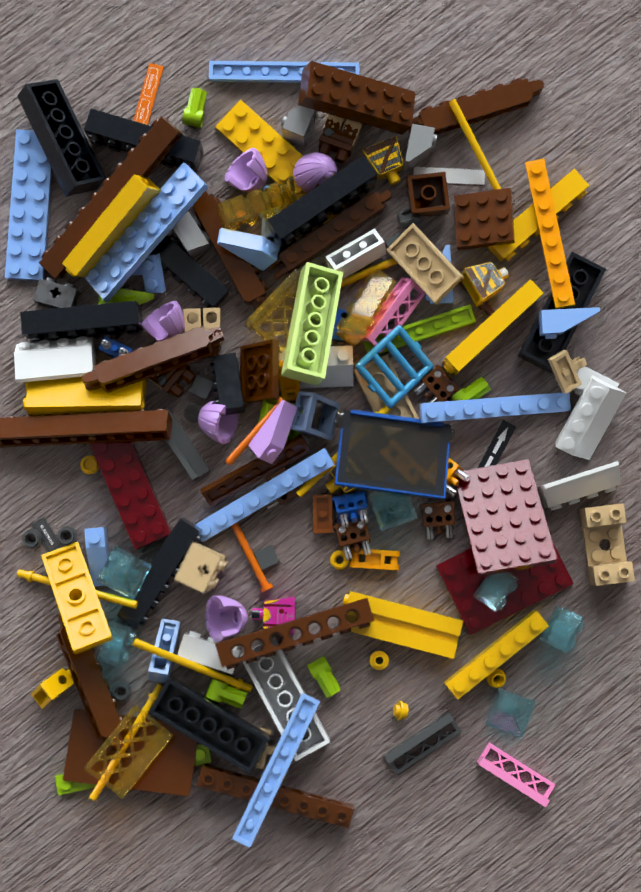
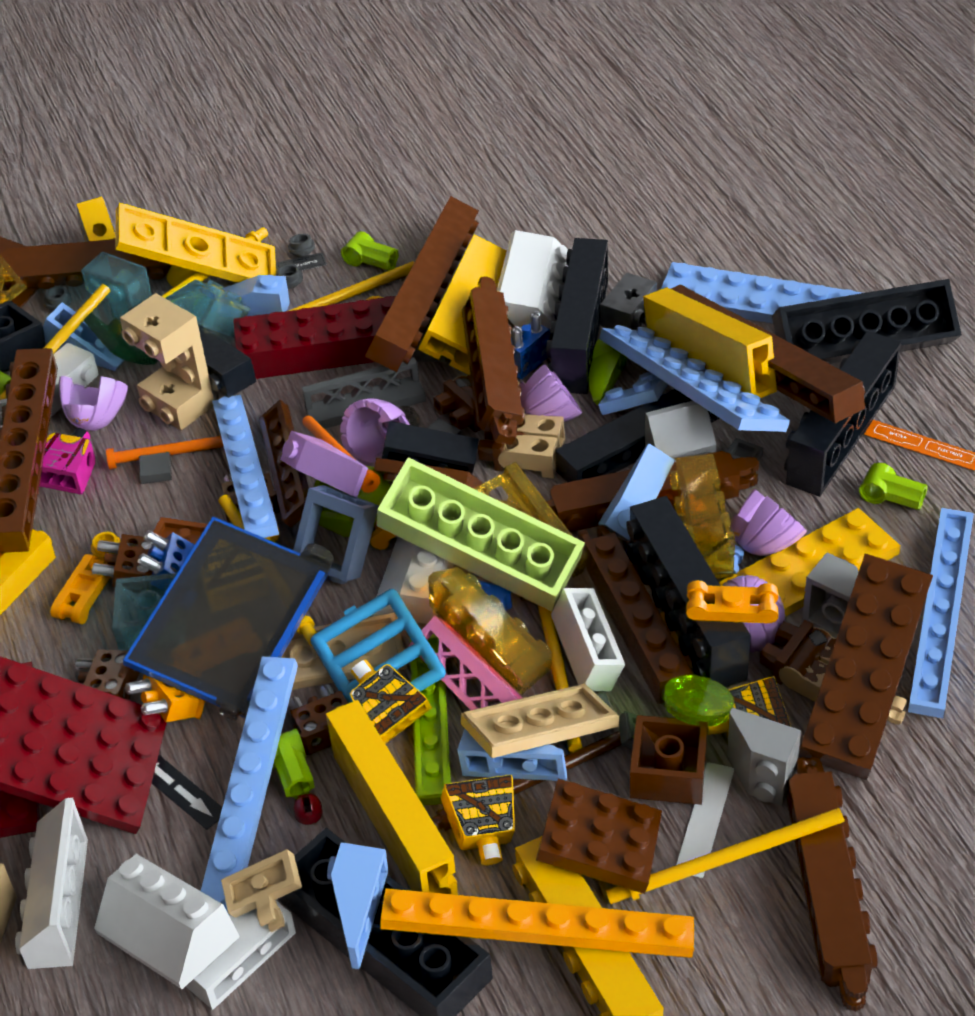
camera: 110 degrees right, 40 degrees down
(31, 491) = (364, 249): none -> lime piece
(117, 531) = (360, 287): none -> yellow bar
(165, 622) = (112, 338): none -> clear green slope
(347, 166) = (732, 603): none -> light orange plate
(396, 182) = (698, 699): none -> clear neon green tile
(427, 349) = (387, 699): none -> torso
(496, 380) = (311, 817): none -> dark red hinge

